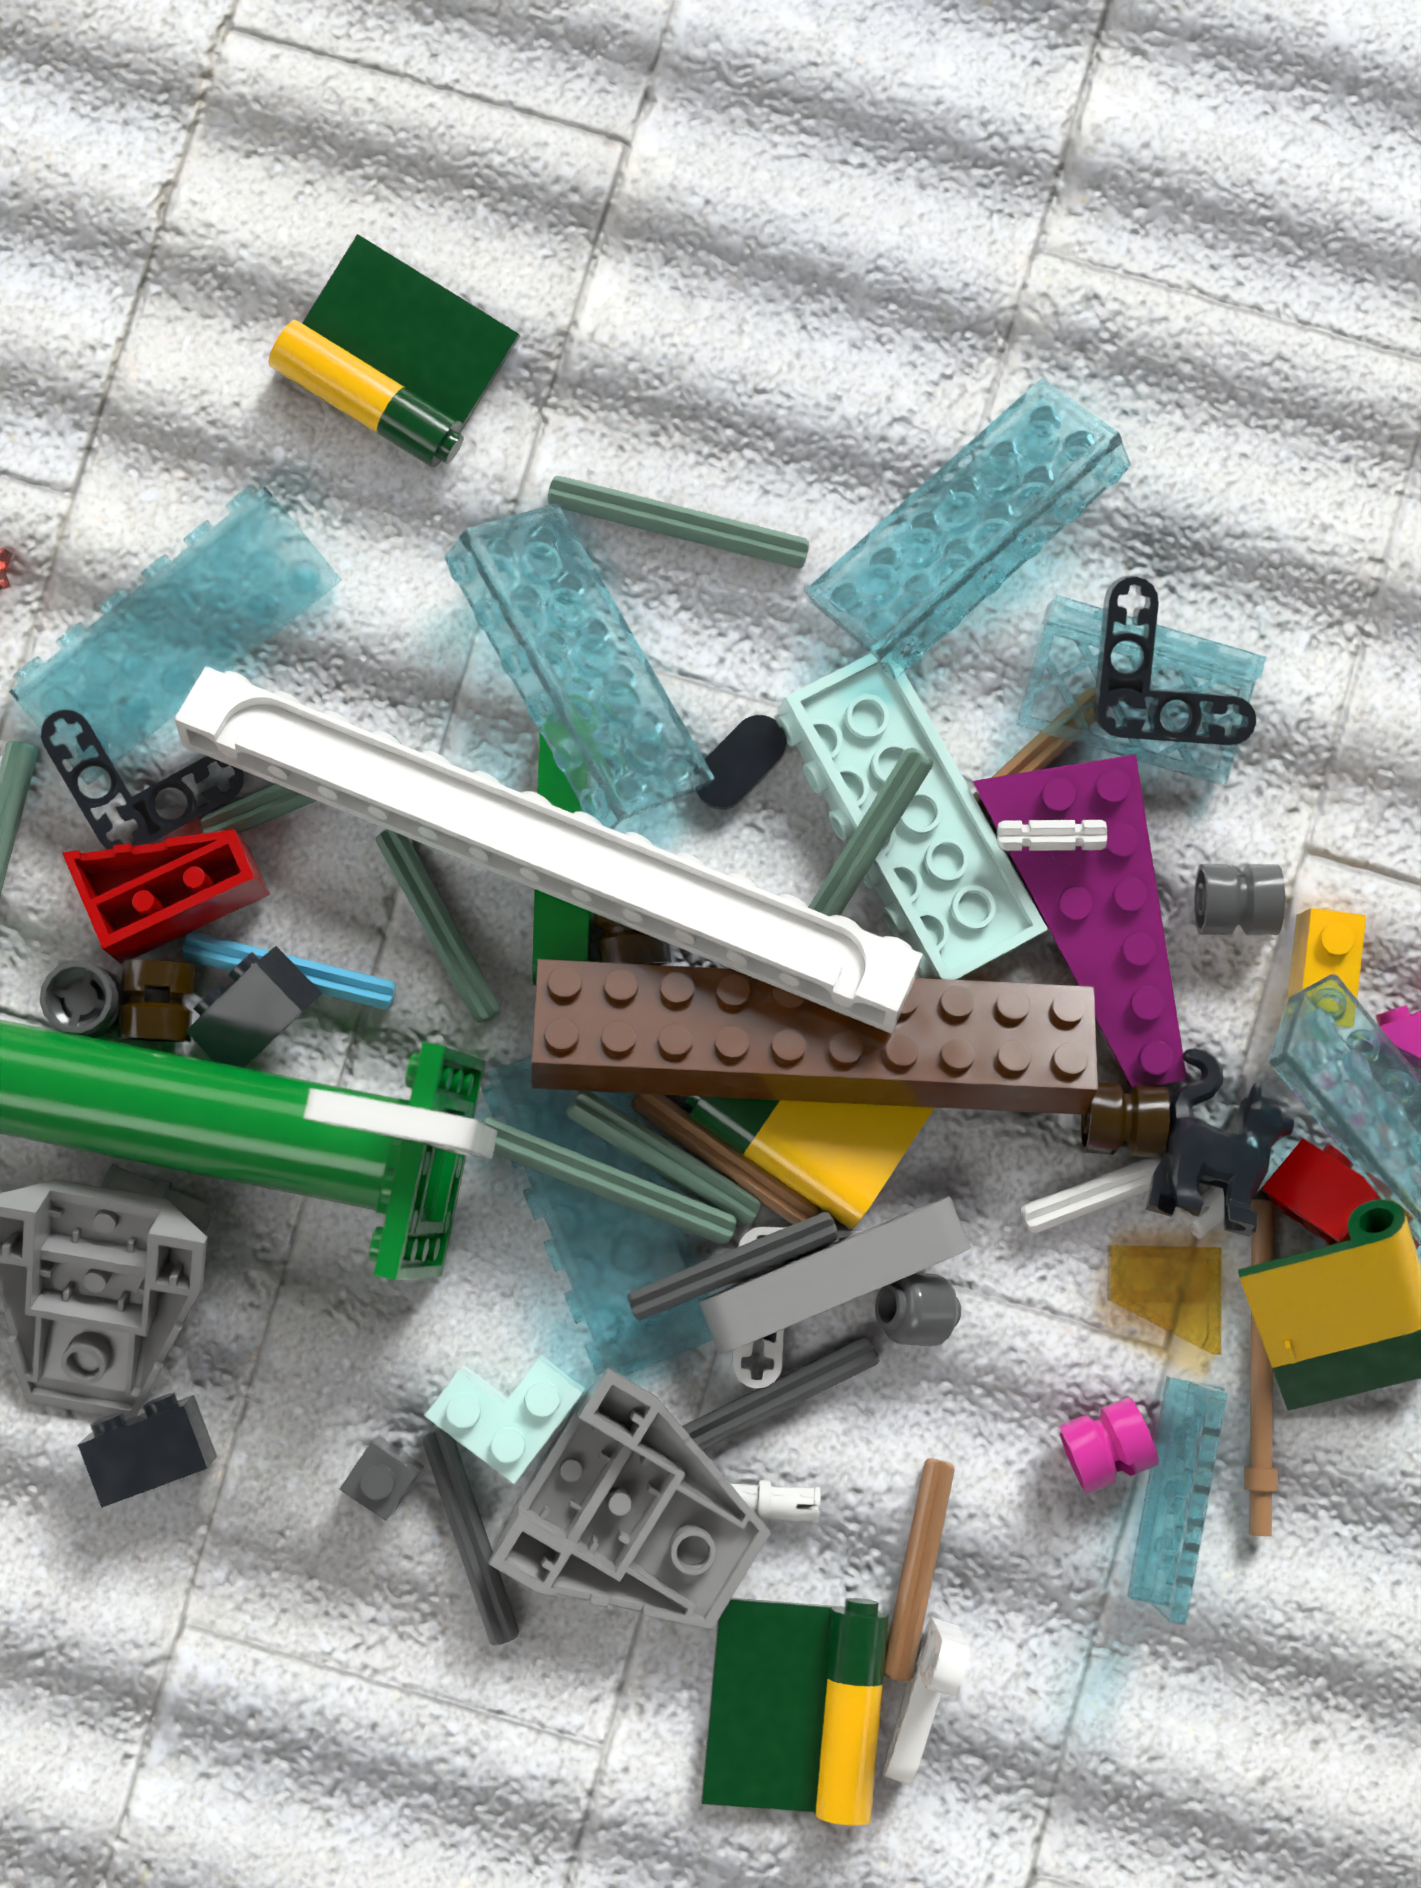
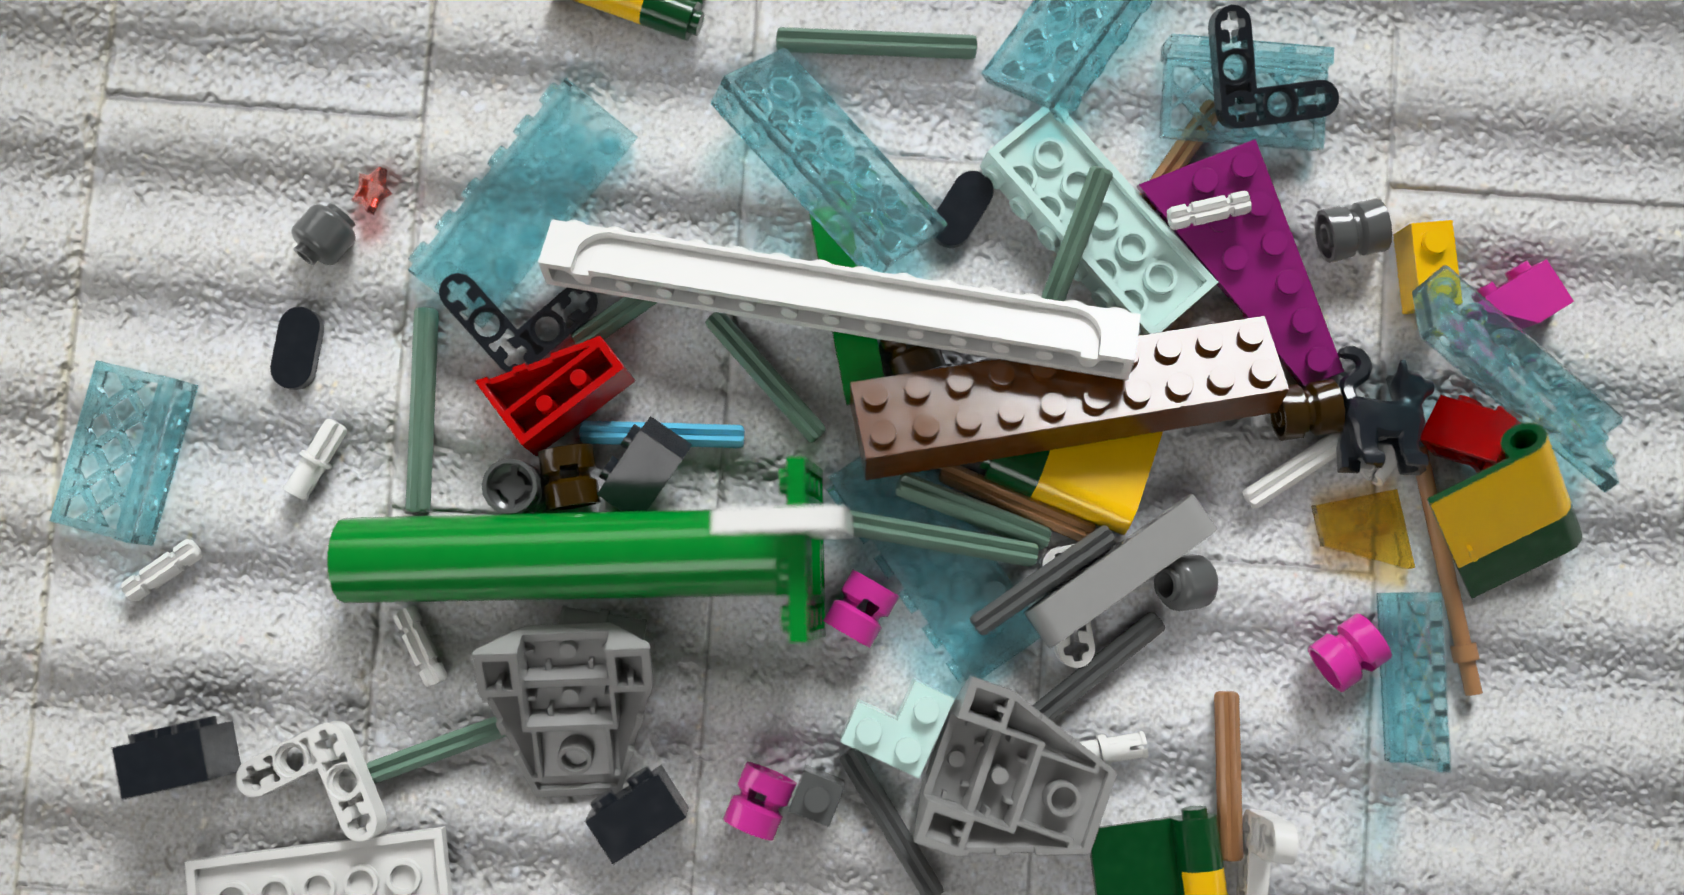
camera: 15 degrees left, 0 degrees up
(296, 1485) = (753, 815): none -> dark pink wheel
(478, 1265) = (852, 621): none -> dark pink wheel

